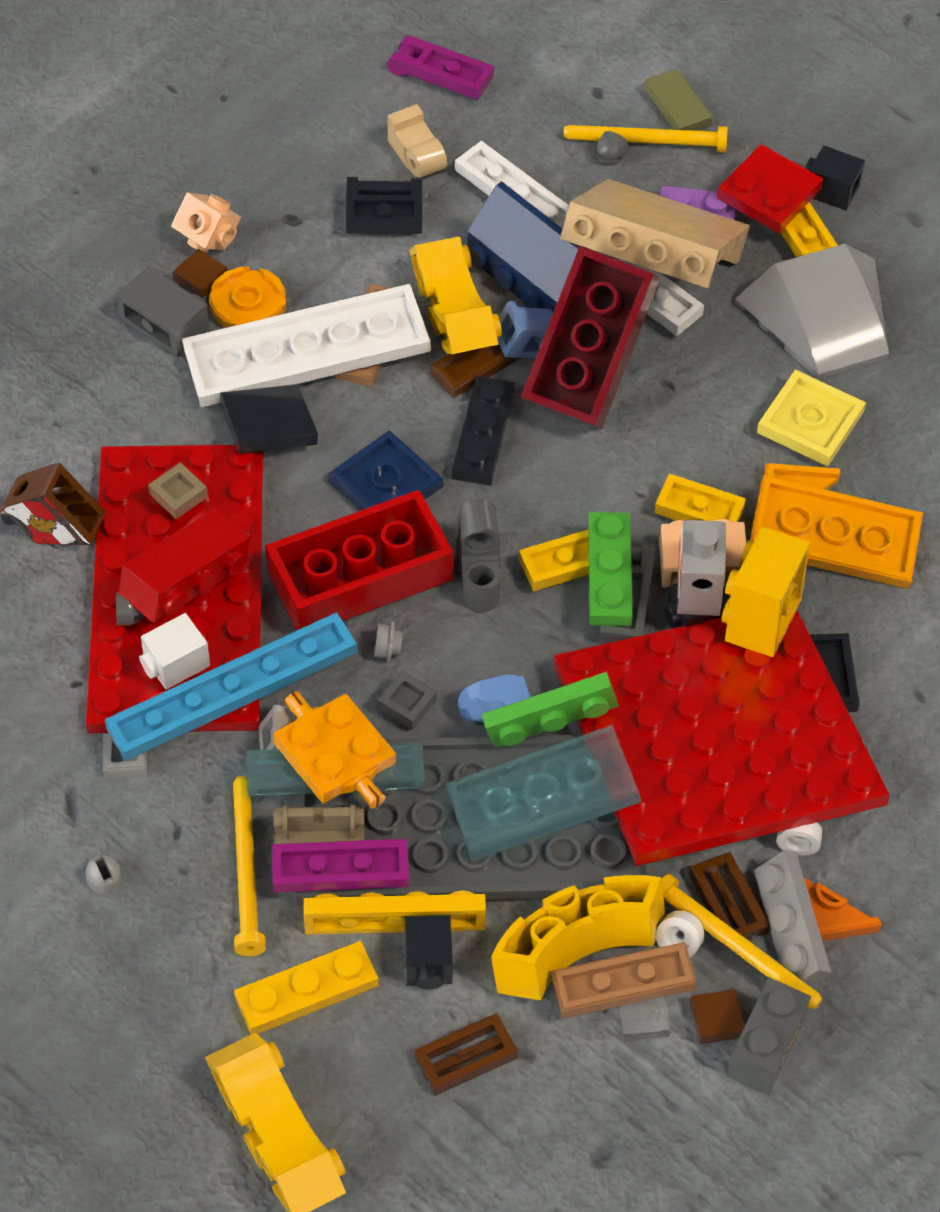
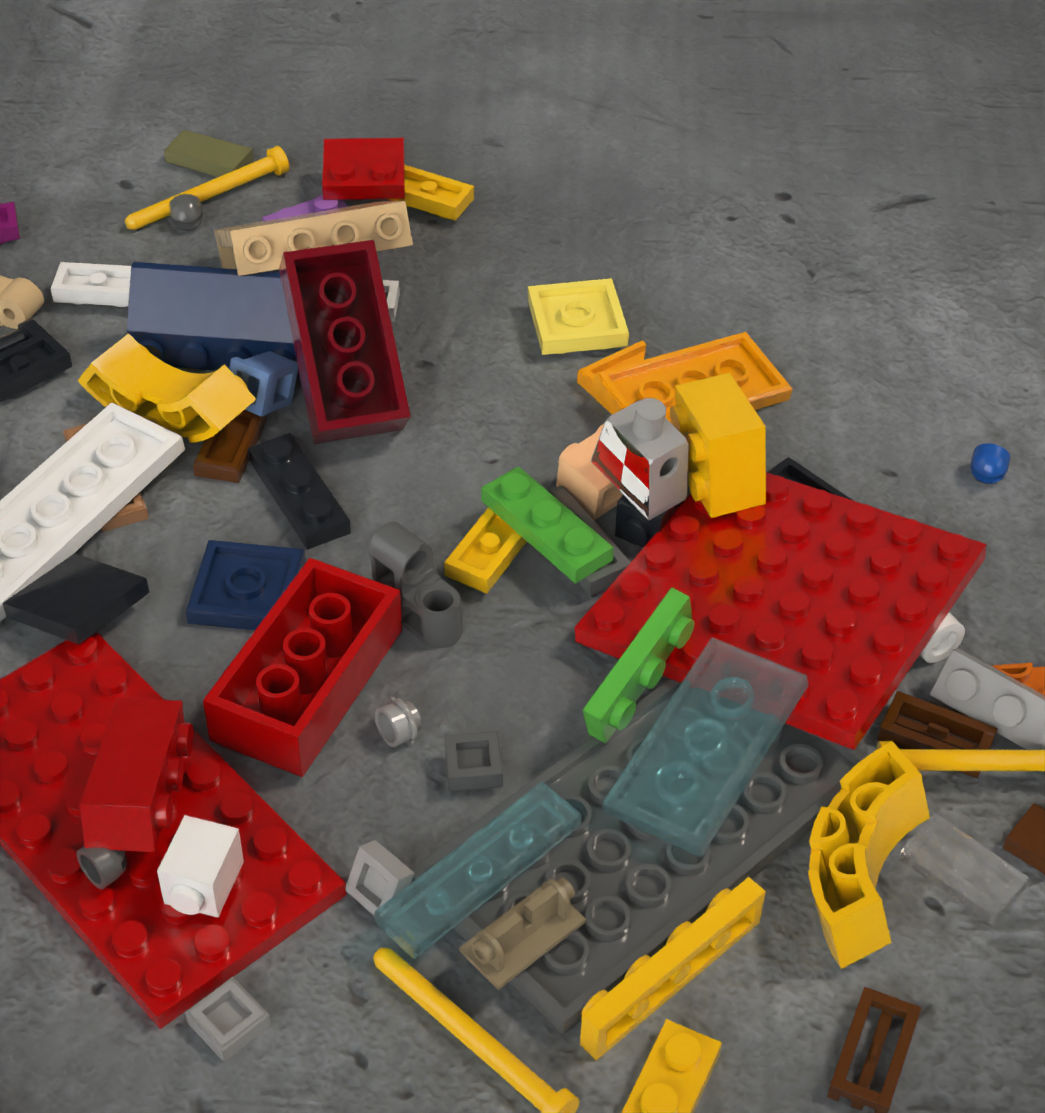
camera: 40 degrees left, 10 degrees down
(178, 490) = (49, 713): dark tan plate -> none
(230, 686) = (289, 869): dark azure plate -> none
(334, 749) = (468, 843): light orange plate -> none
(340, 865) = (583, 955): magenta plate -> none
(428, 951) = (743, 977): black brick -> none
(491, 695) = (560, 701): medium blue rock -> none
(623, 980) = (946, 864): medium nougat tile -> none
(679, 928) = (945, 789): white tile -> none
(694, 501) = (549, 434): yellow plate -> none
(822, 309) = (497, 235): light grey wedge -> none
(840, 176) = (414, 129): black brick -> none

